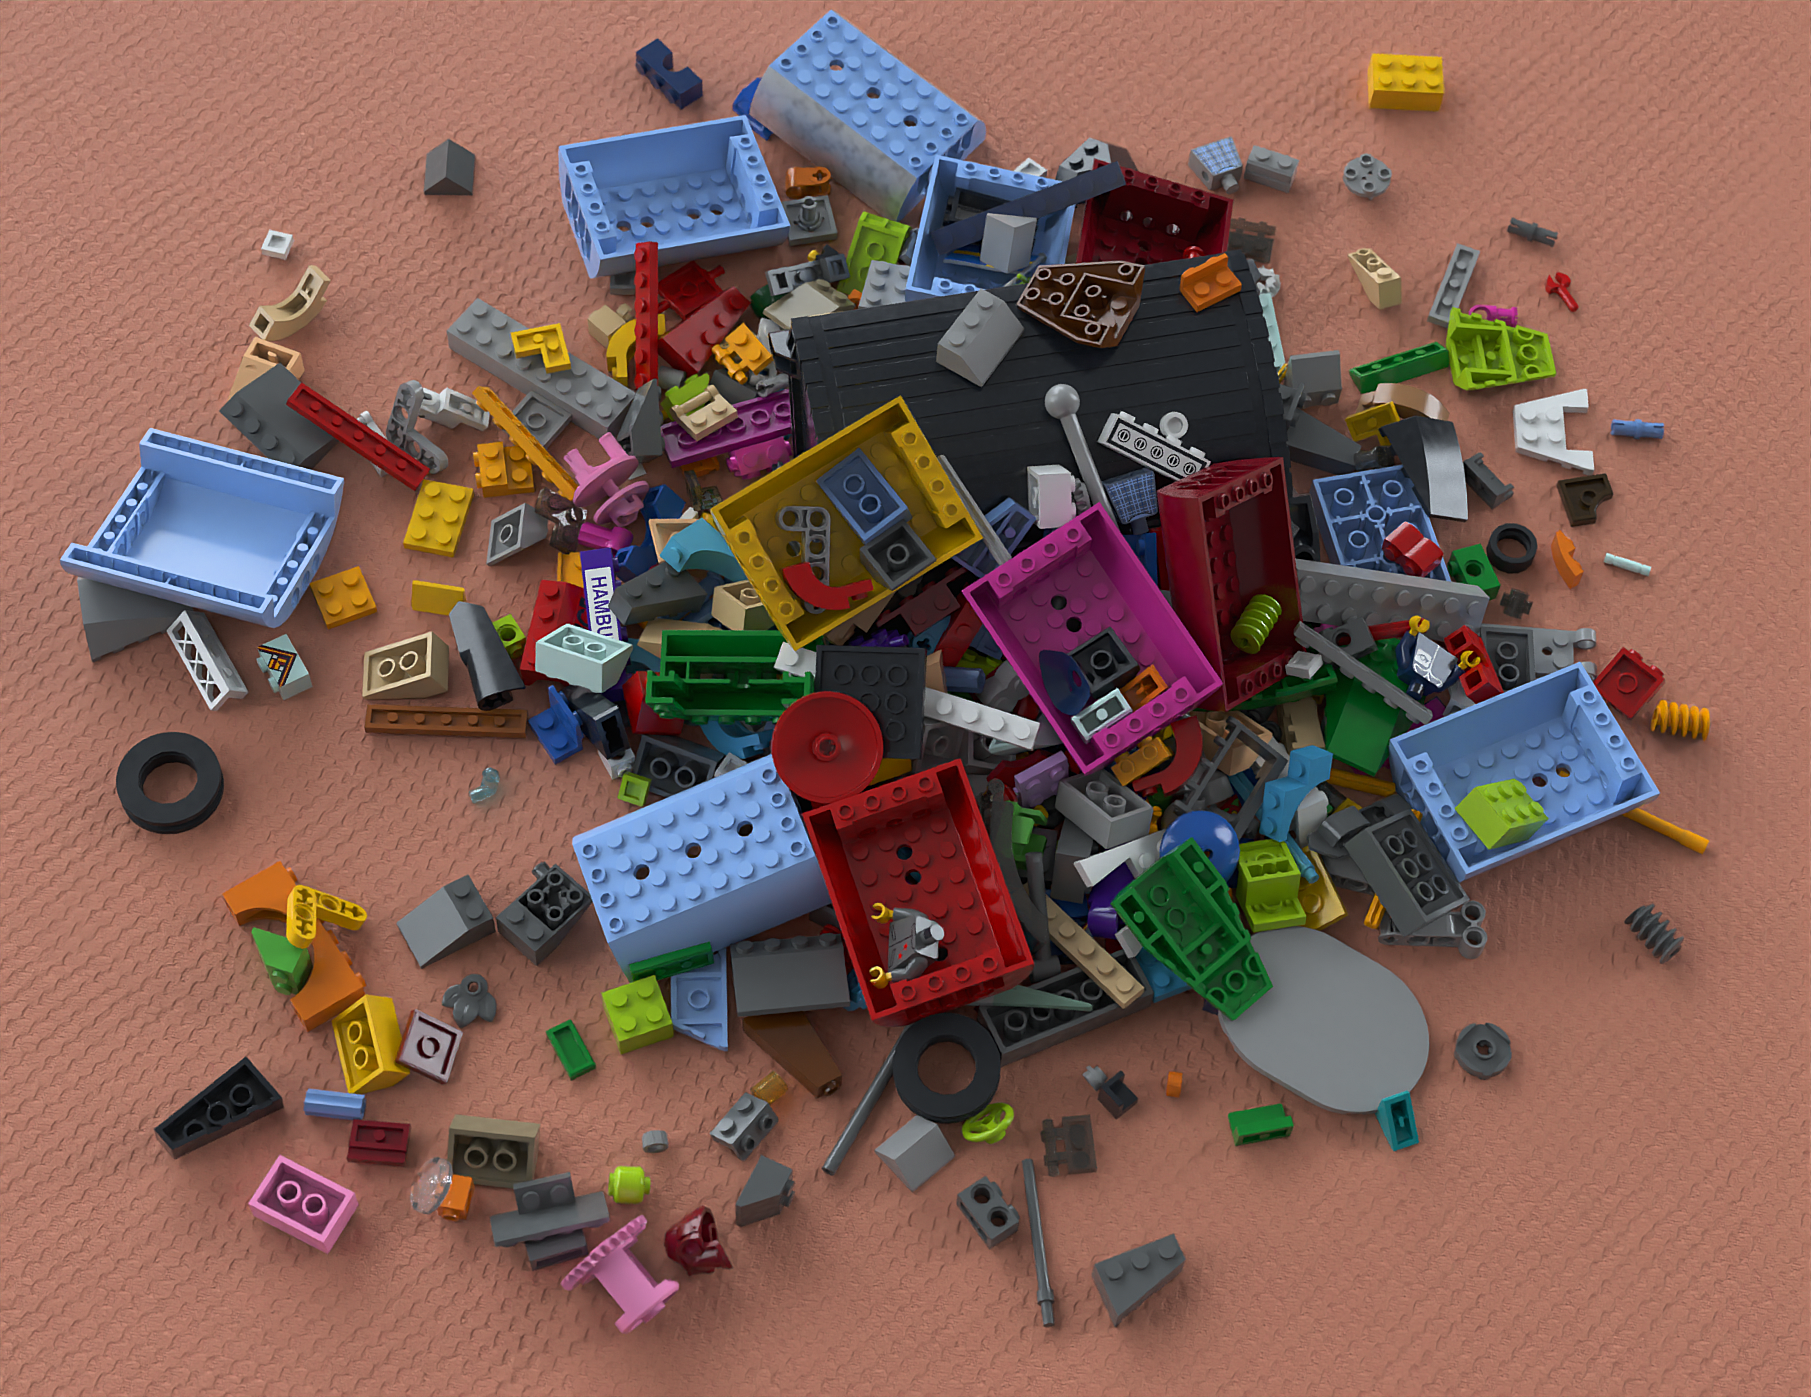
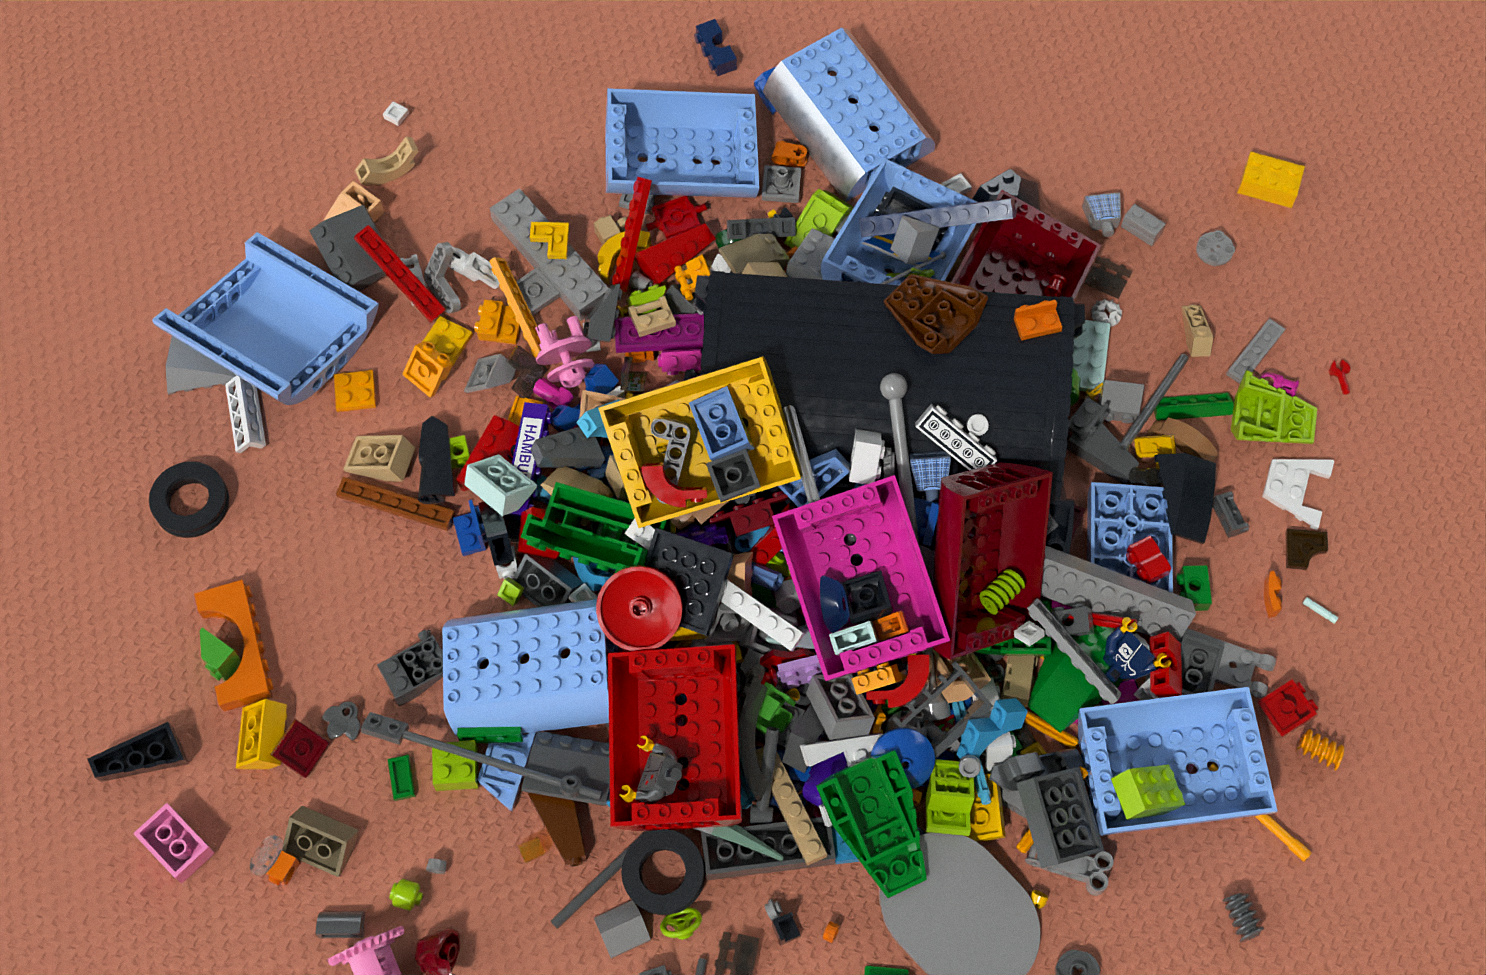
camera: 20 degrees right, 5 degrees up
(284, 667) = (295, 433): light aqua brick -> none
(334, 1104) = (222, 773): medium blue axle -> none
(342, 914) = (252, 622): yellow beam -> none
(378, 1142) = (243, 810): dark red plate -> none
(432, 544) = (427, 367): none -> light orange plate
(435, 597) = (418, 408): yellow slope -> none
(446, 922) = (345, 656): slope -> none
(449, 170) = (535, 85): dark grey slope -> none
(488, 785) = (408, 561): clear light blue arm -> none
(546, 1209) = (341, 898): dark grey bracket -> none
(551, 989) = (396, 731): none -> dark grey bar
(745, 1125) = (505, 872): dark grey bracket -> none
(765, 1192) = (498, 930): dark grey slope -> none
(979, 338) = (845, 322): light grey slope -> none
(1282, 838) = (969, 766): none -> light grey tile
(1353, 372) = (1153, 402): none -> dark grey piece
(1410, 979) = (1039, 898): none -> yellow hinge
(1515, 532) = (1223, 585): black tyre -> none
(1516, 603) = (1220, 620): clear smoke gear -> none
(1532, 232) = (1332, 323): dark grey pin -> none
(1637, 429) = (1364, 502): medium blue pin -> none

